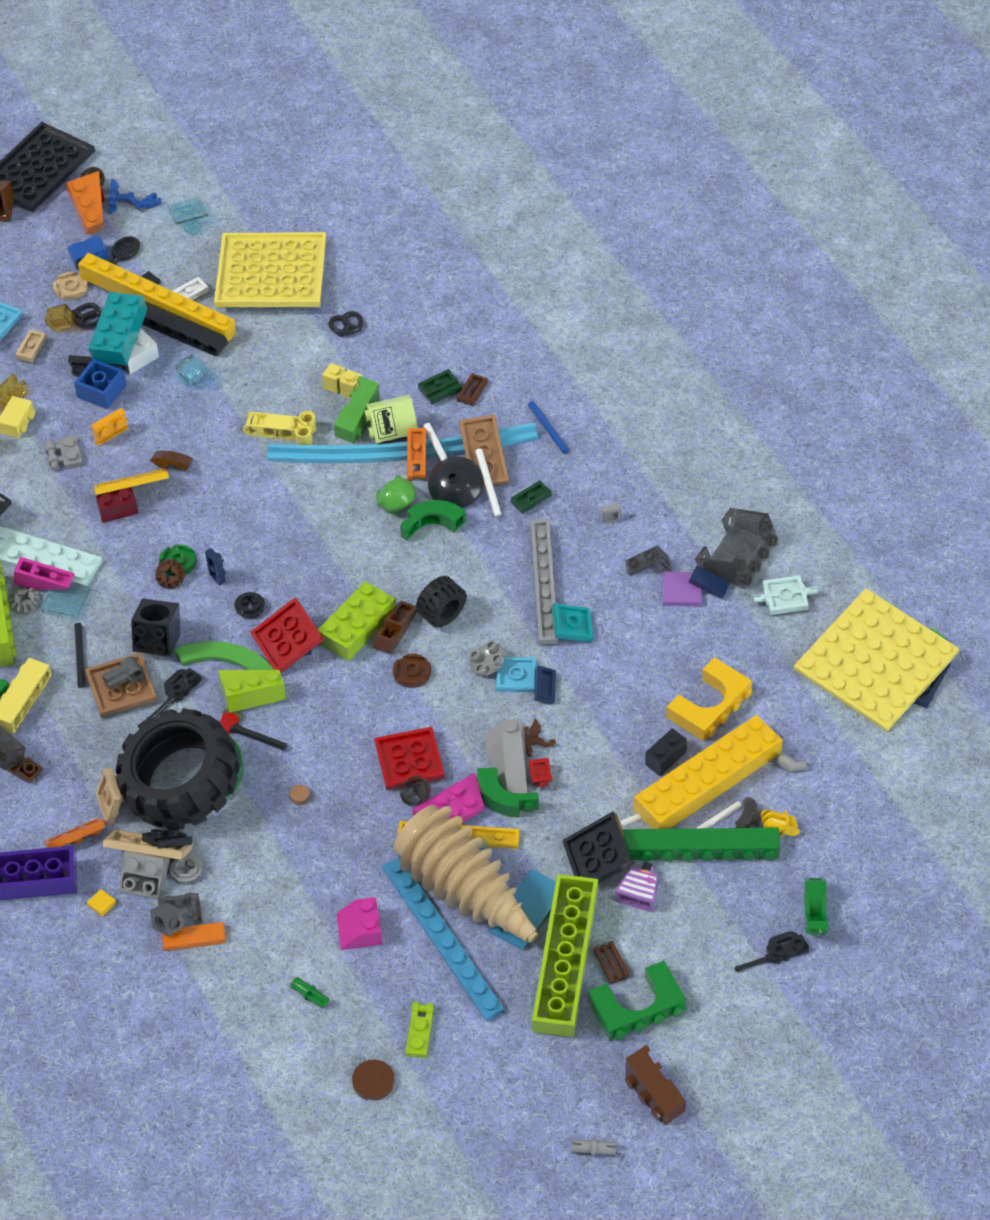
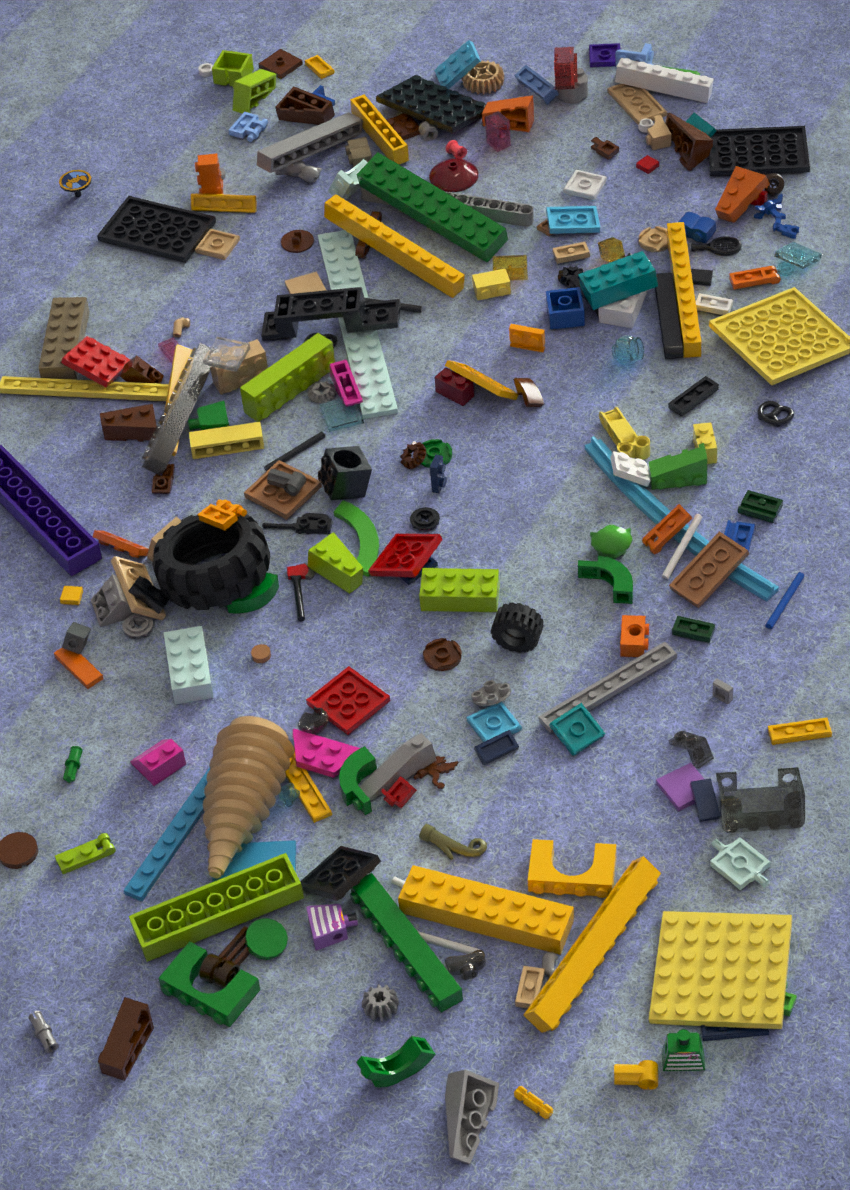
camera: 60 degrees right, 5 degrees down
(62, 366) = (563, 276): none -> black gear
(70, 453) = (487, 334): light grey plate -> none
(153, 731) = (222, 514): none -> light orange plate
(183, 251) = (754, 277): none -> orange plate
(189, 901) = (104, 648): clear smoke bracket -> none
(272, 850) = (188, 665): none -> light aqua brick
(280, 360) = (693, 396): none -> black plate
(329, 440) = (630, 468): none -> white plate
(390, 418) = (688, 490): yellowish green brick -> none
(394, 627) = (471, 618): reddish brown slope -> none
(454, 413) = (740, 533): none -> blue plate
(463, 488) = (661, 572): black dish -> none
(465, 400) = (779, 532): reddish brown tile -> none
(488, 483) = (679, 591): white bar -> none
(506, 537) = (633, 636): none -> orange brick
(618, 768) = (430, 834): none -> olive plant
(620, 938) = (266, 938): none -> green tile
(631, 986) = (218, 971): none -> dark brown wheel
(666, 752) = (487, 866): black brick -> none
(685, 491) = (799, 731): none -> yellow tile
(744, 891) = (380, 1002): none -> light grey gear
(778, 952) = (336, 1064): black piece -> none
(786, 823) = (475, 993): yellow arm -> none
(796, 724) = (592, 945): none -> yellow brick
(802, 786) = (529, 986): none -> tan plate
(879, 879) = (467, 1106): none -> light grey wedge
(909, 841) = (533, 1102): none -> yellow axle
(935, 758) = (643, 1074): none -> yellow piece
(941, 717) = (683, 1052): none -> green torso

